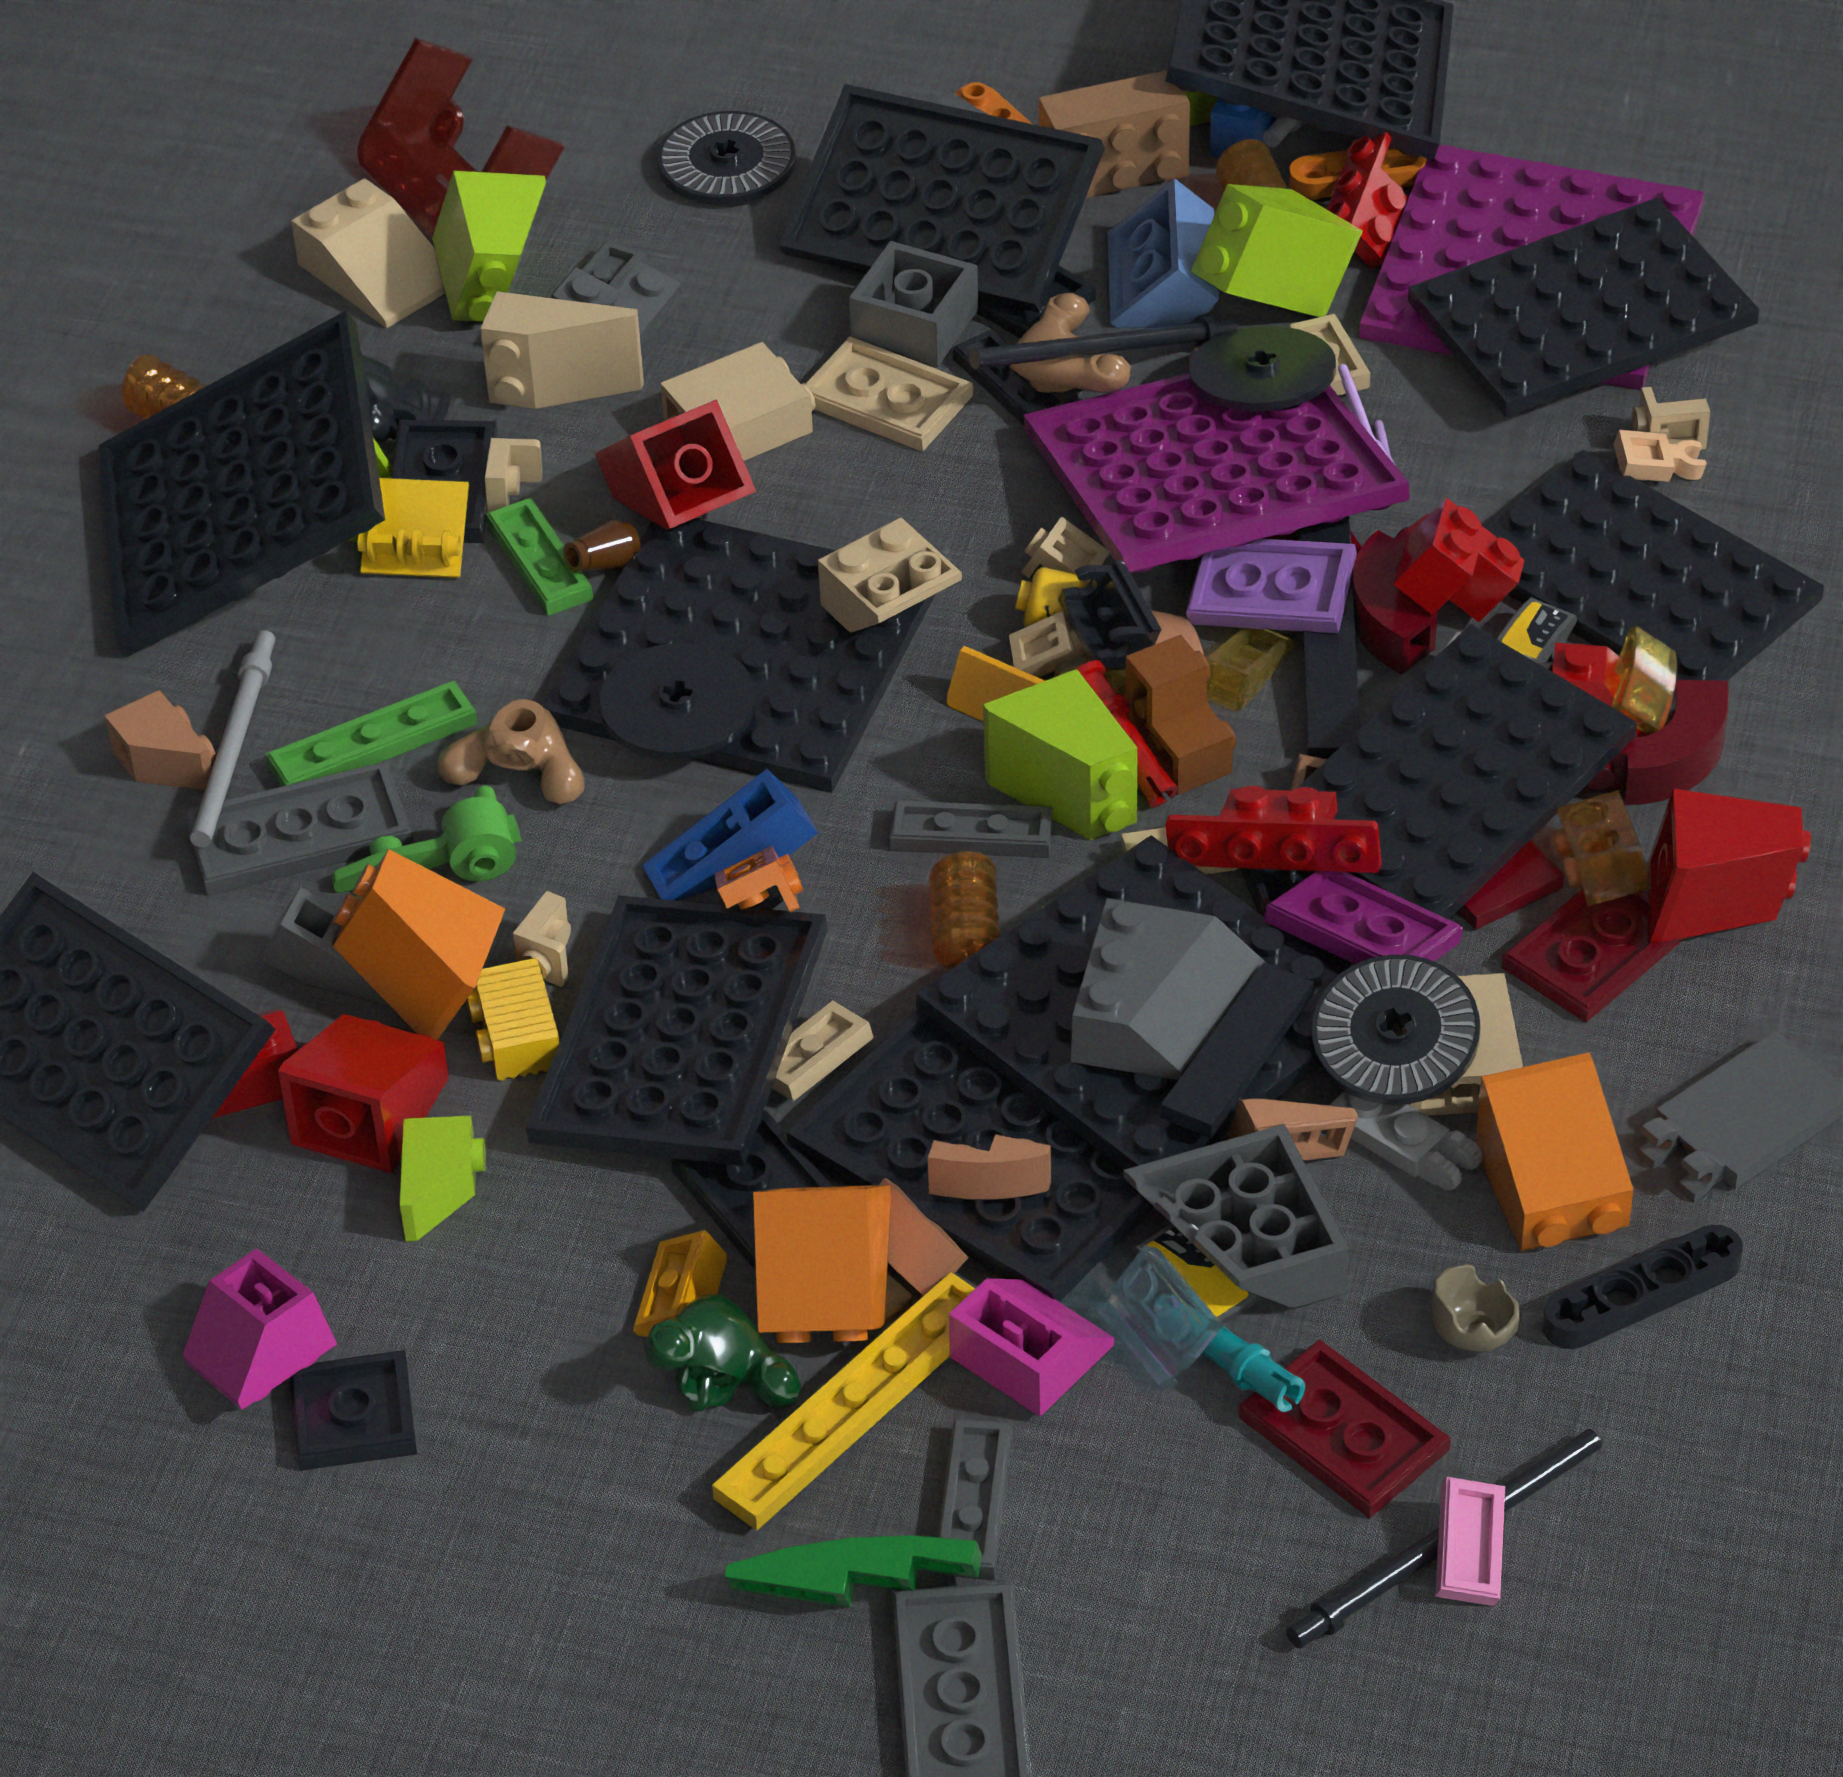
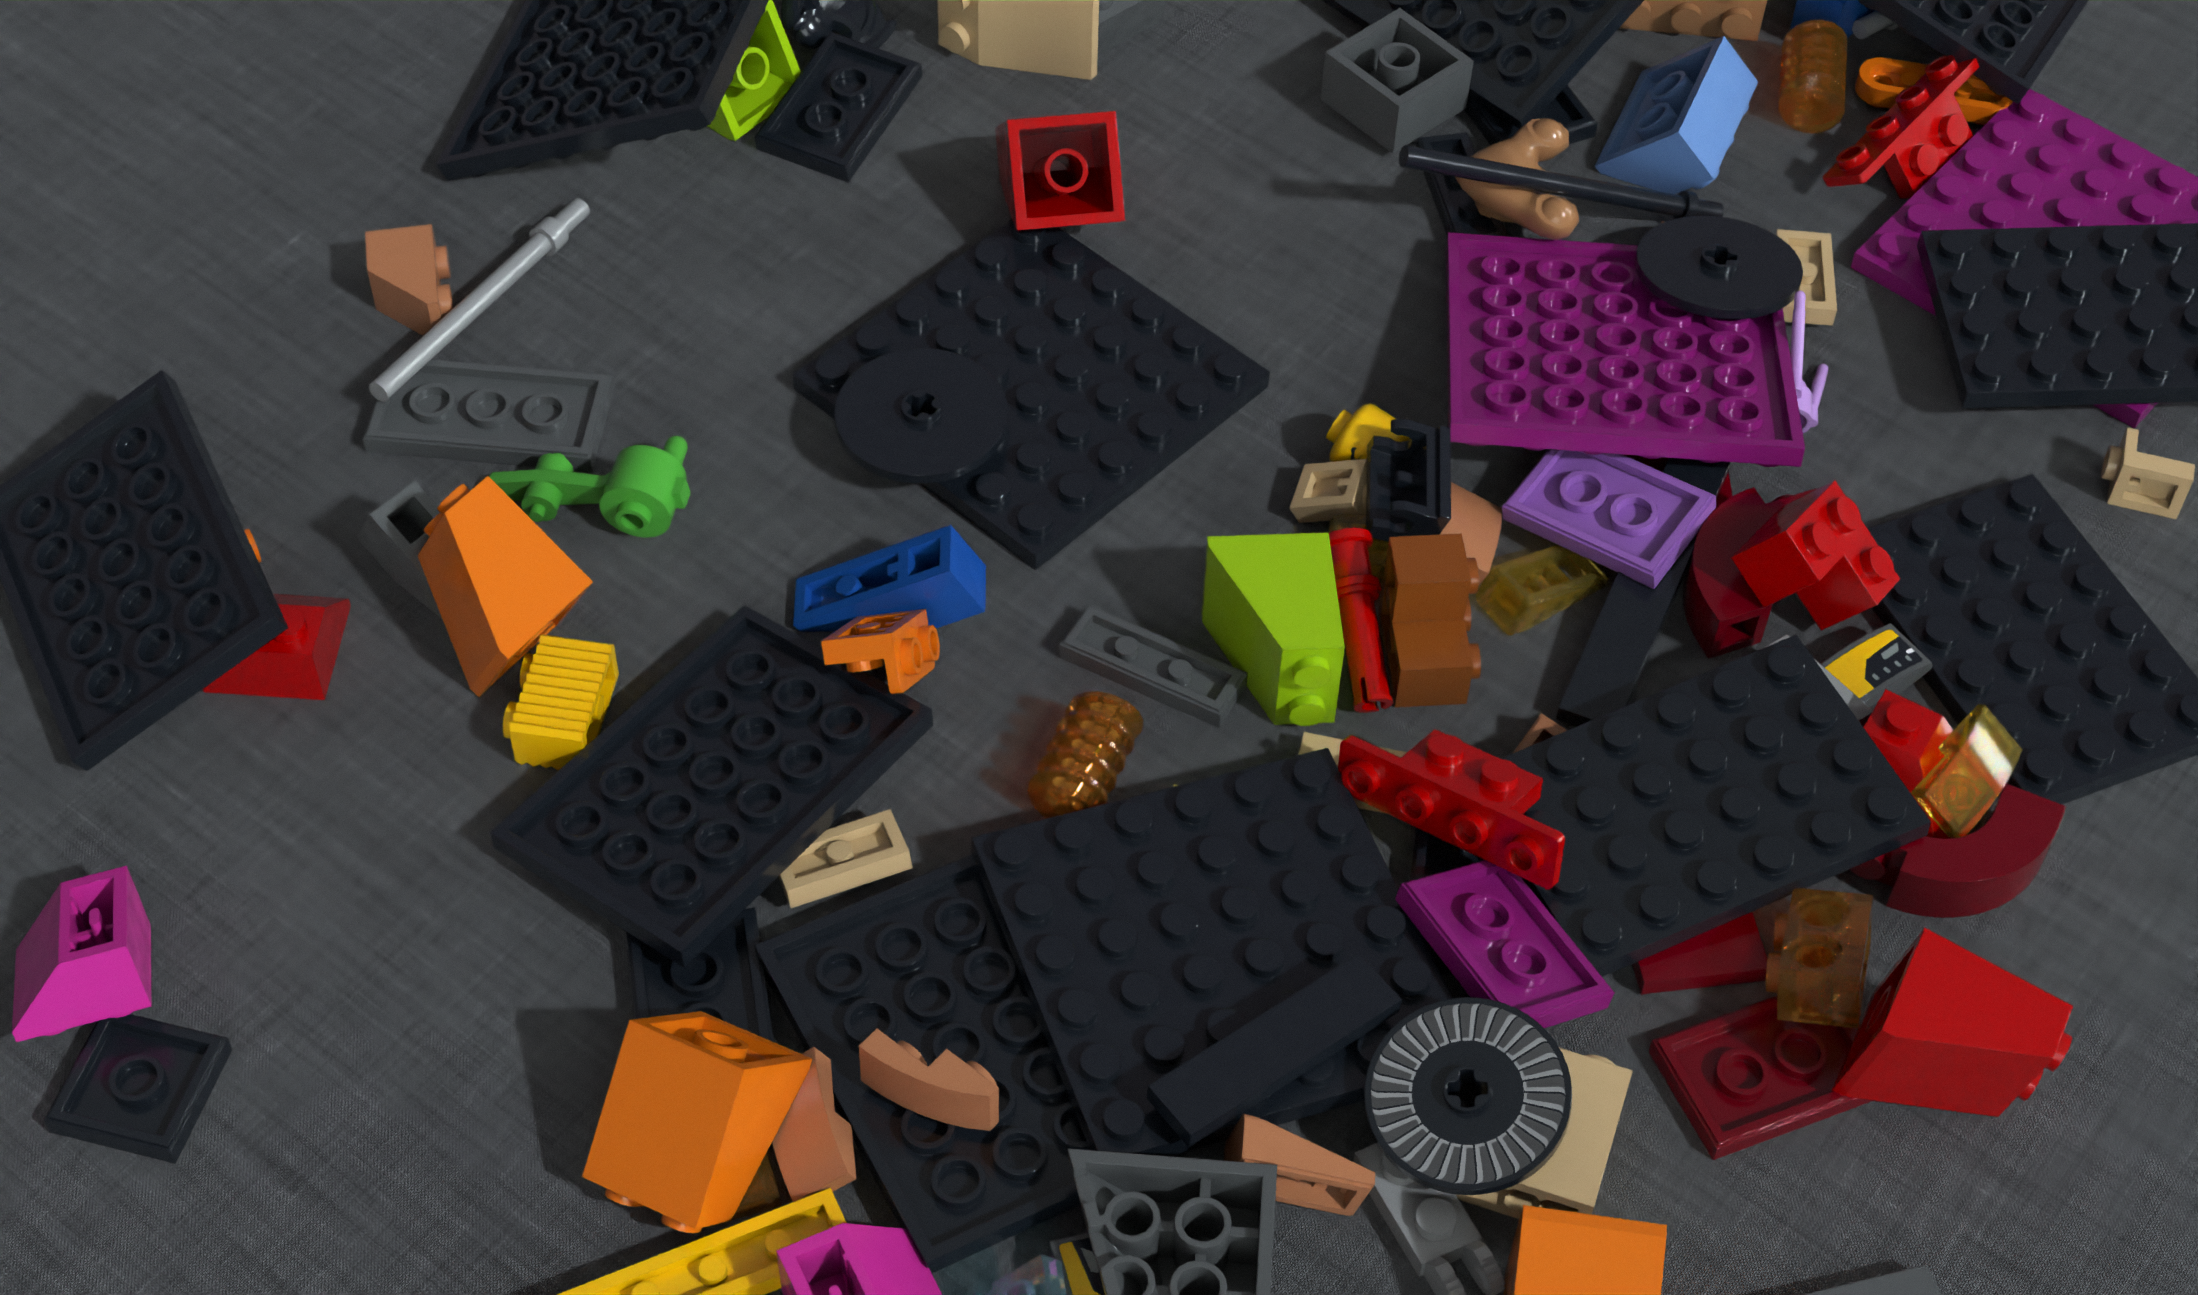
camera: 20 degrees right, 5 degrees up
(357, 1086) = (361, 721): red slope -> none
(375, 736) = (621, 344): bright green tile -> none
(419, 531) = (779, 144): yellow hinge -> none
(437, 1170) = (378, 845): lime slope -> none
(508, 465) = (901, 114): tan bracket -> none
(520, 740) = (744, 399): medium nougat head -> none
(538, 556) = (889, 215): bright green tile -> none
(544, 937) = (643, 620): tan bracket -> none
(603, 548) = (947, 227): reddish brown cone -> none
(680, 1273) = (551, 1084): light orange slope -> none
(715, 1351) = (522, 1179): dark green head -> none
(755, 394) = (1173, 126): tan brick -> none
(882, 575) = (1194, 354): tan slope -> none
(888, 393) = (1326, 164): tan tile -> none
(981, 680) = (1250, 507): light orange slope -> none
(1063, 549) = (1410, 392): tan bracket -> none
(1156, 988) = (1216, 940): dark grey wedge -> none
(1276, 249) = (1794, 143): lime slope -> none
(1654, 459) = (2108, 511): light nougat plate -> none

